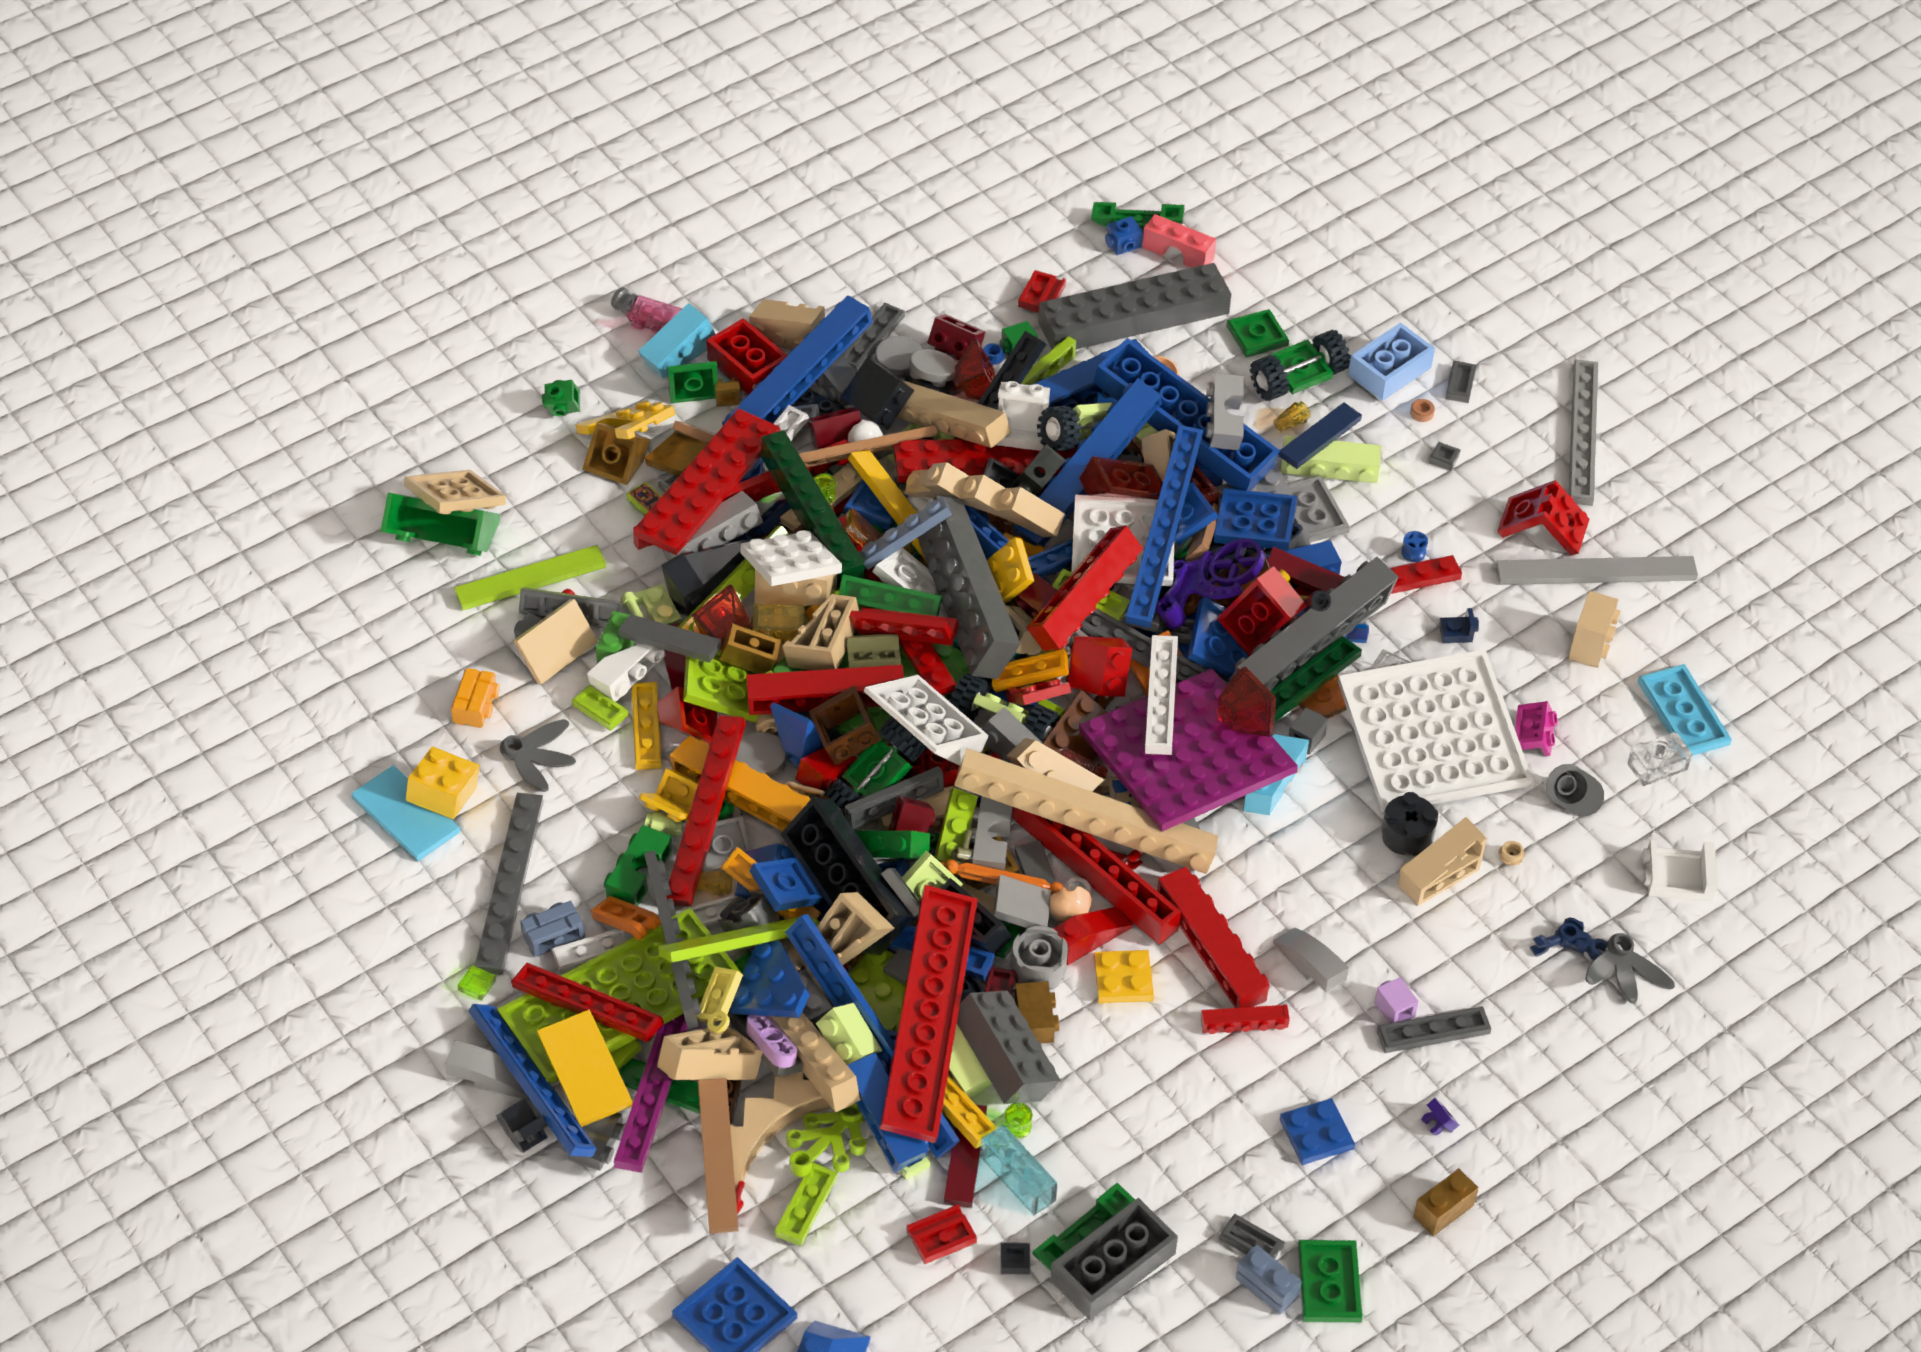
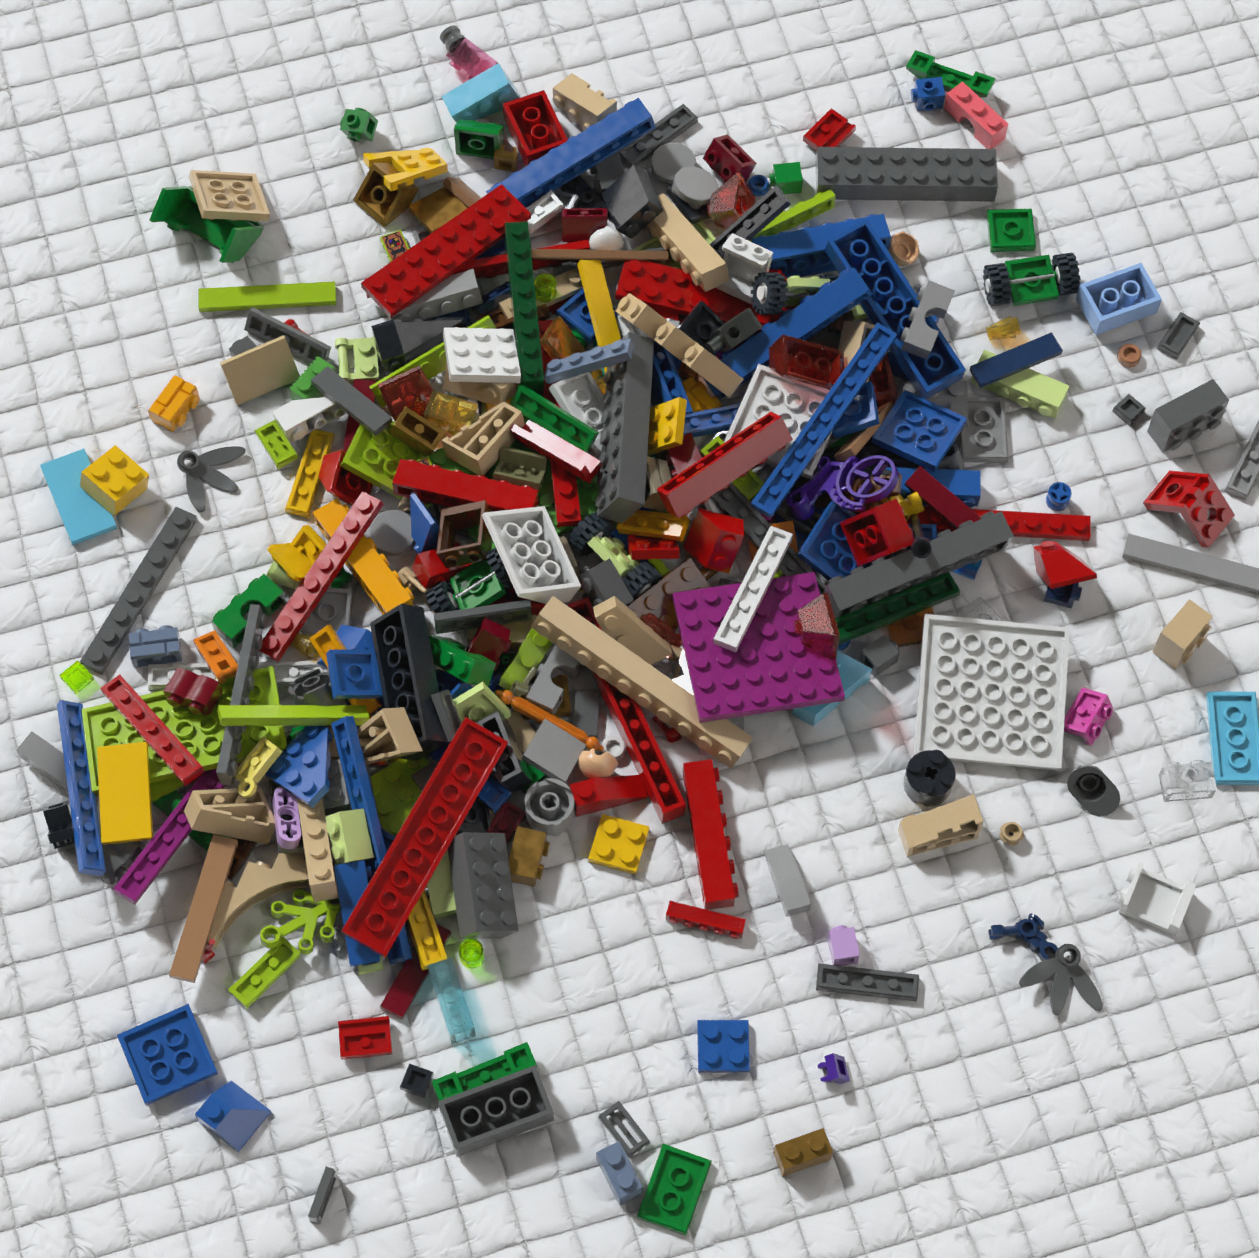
camera: 20 degrees right, 15 degrees up
(617, 952) = (192, 691): none -> dark red brick
(1446, 601) = (1060, 566): none -> red slope
(1506, 442) = (1188, 416): none -> dark grey brick

